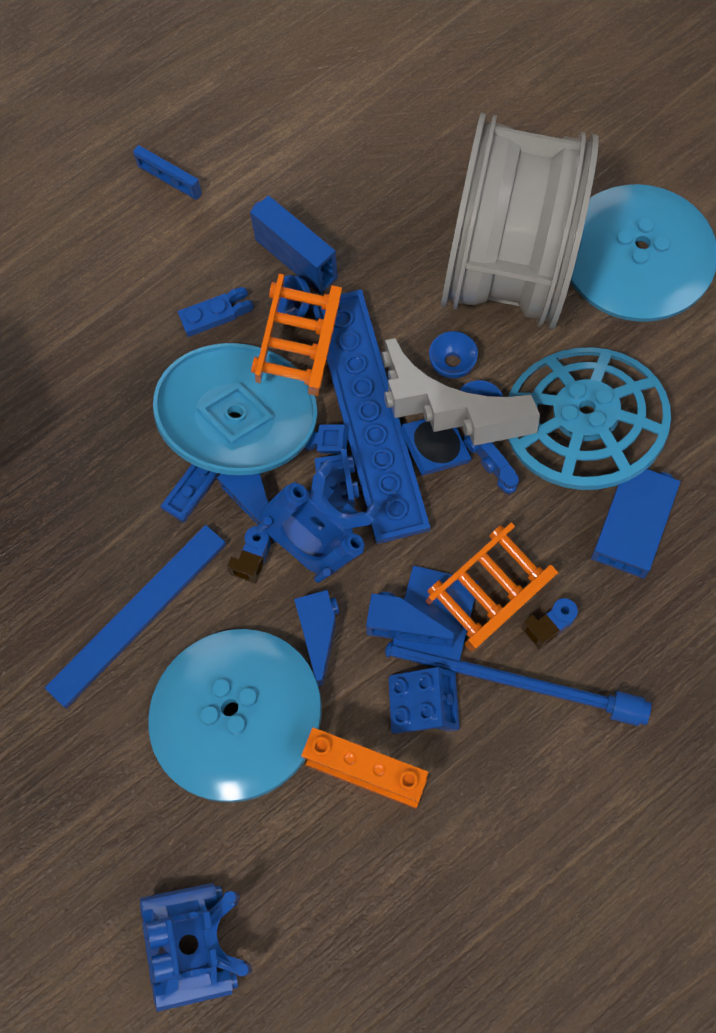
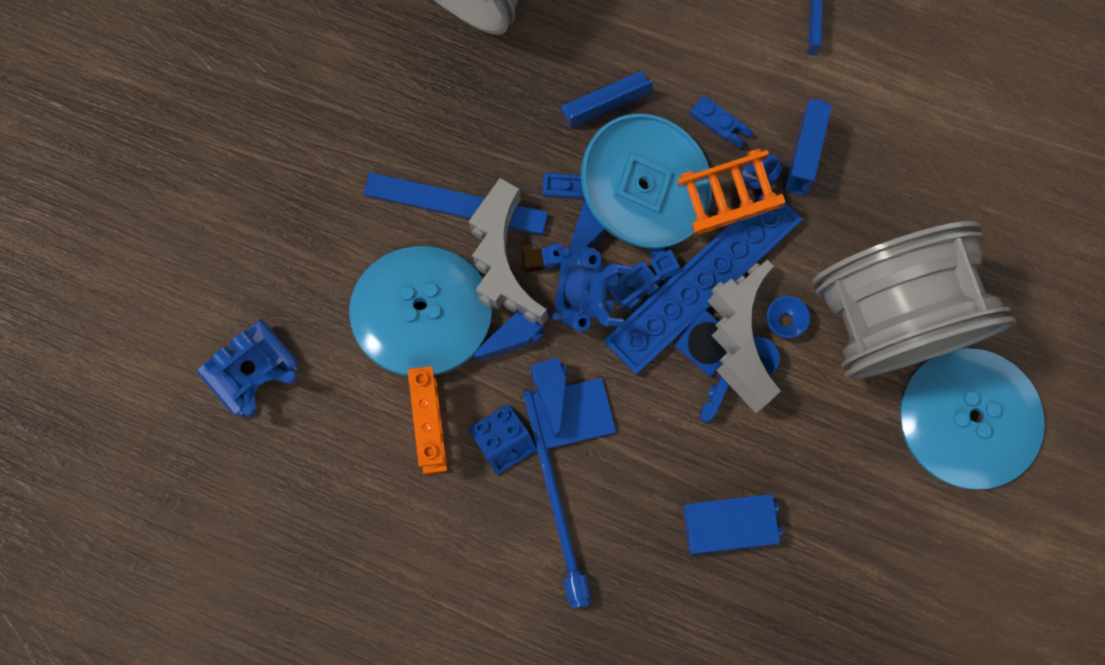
camera: 55 degrees right, 5 degrees up
(121, 404) = (606, 99): none -> blue panel
(223, 603) = (491, 226): none -> light grey arch
(497, 614) = (596, 458): orange fence -> none
(552, 624) = (618, 505): leg -> none
(594, 425) = (794, 457): dark azure dish -> none

